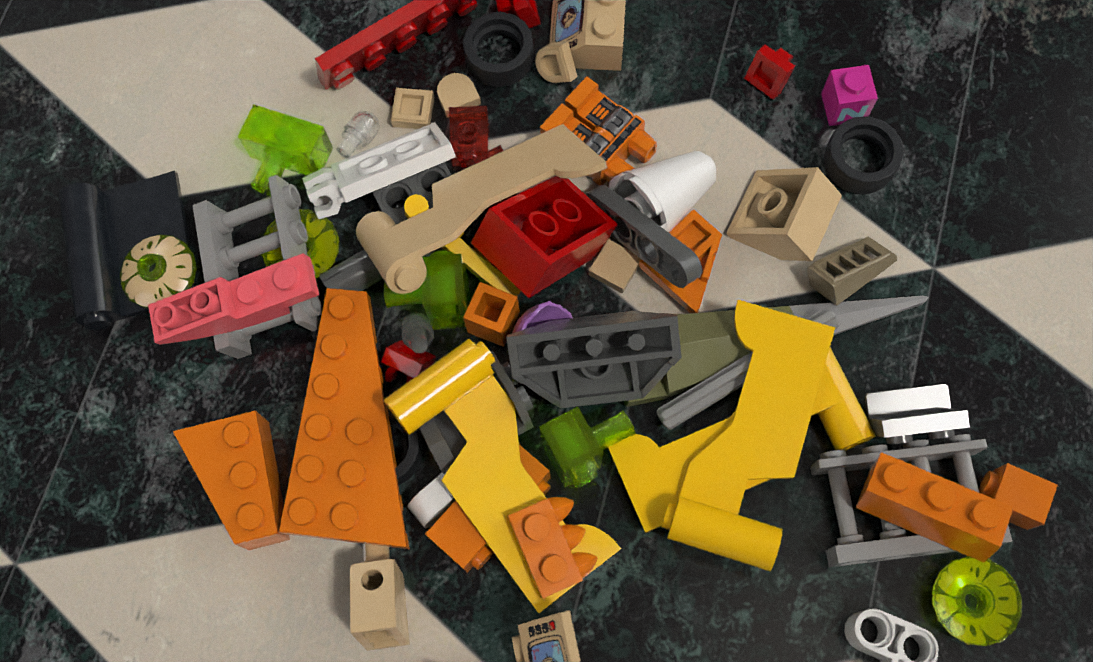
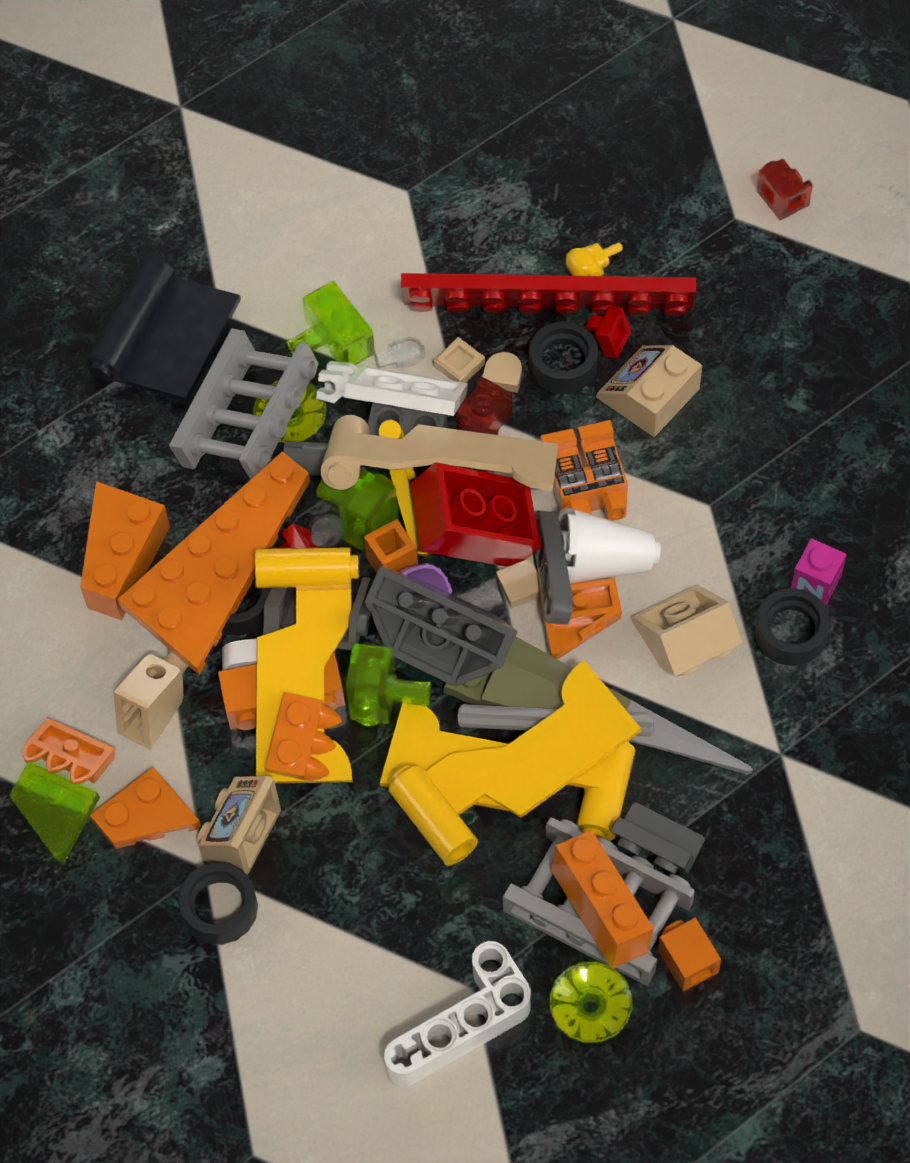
camera: 35 degrees right, 10 degrees down
(172, 274) = (175, 373): tan dish -> none
(235, 304) = (202, 418): coral slope -> none
(556, 62) = (599, 396): tan tile -> none
(770, 70) = (772, 511): red tile -> none
(837, 289) = (704, 704): dark tan slope -> none

